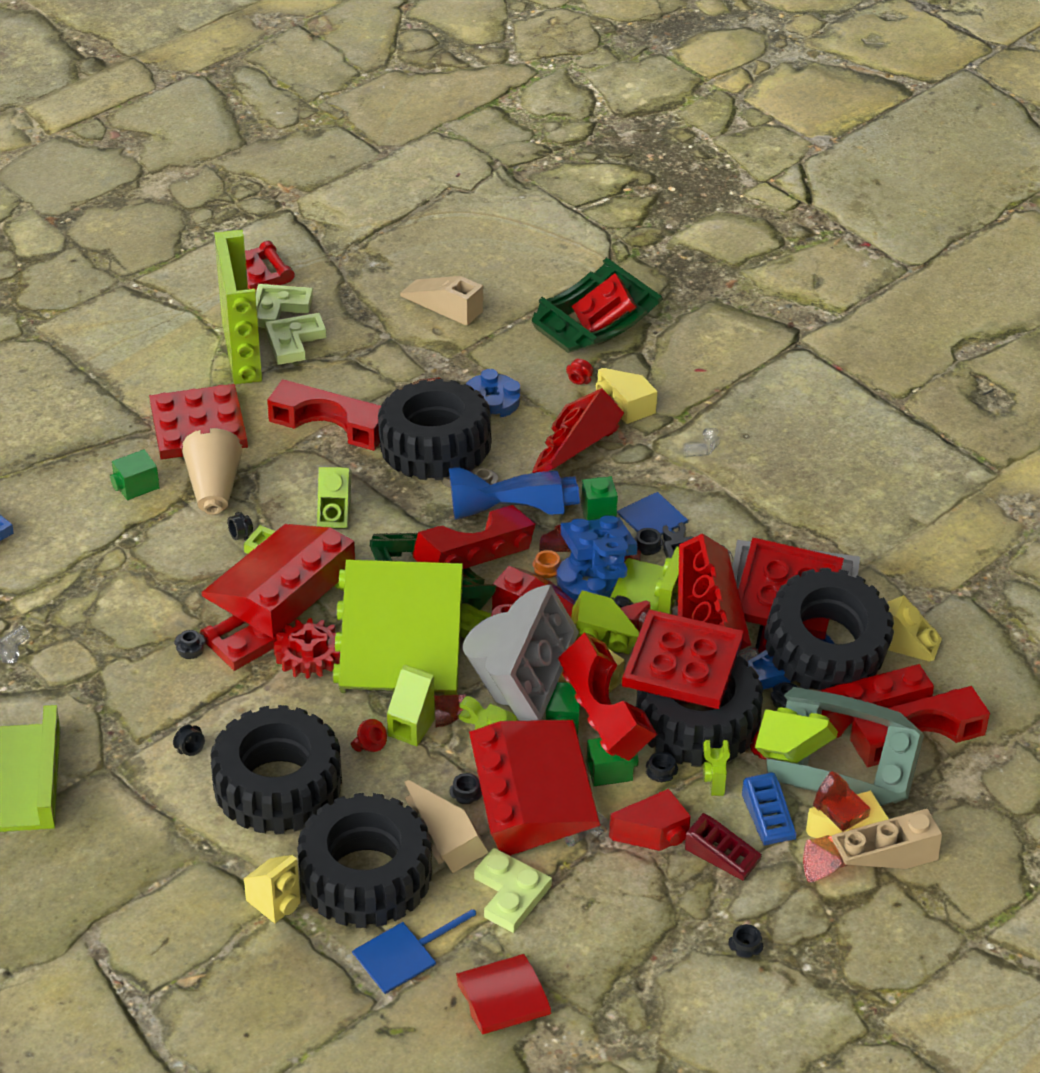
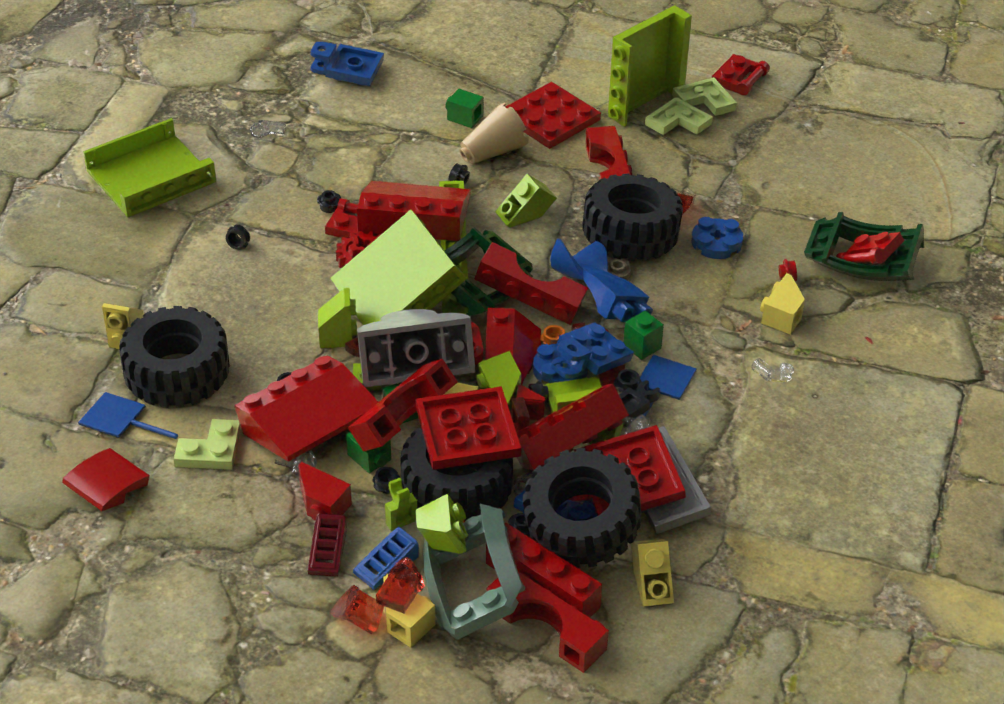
camera: 60 degrees right, 0 degrees up
(272, 737) = (230, 259): black tyre -> none
(370, 736) = (304, 317): red plate -> none
(449, 296) = (796, 171): tan slope -> none
(449, 826) = (236, 383): tan slope -> none
(578, 427) = (722, 295): red wedge -> none
(746, 934) = (239, 594): black plate -> none
(892, 843) = (393, 642): tan slope -> none

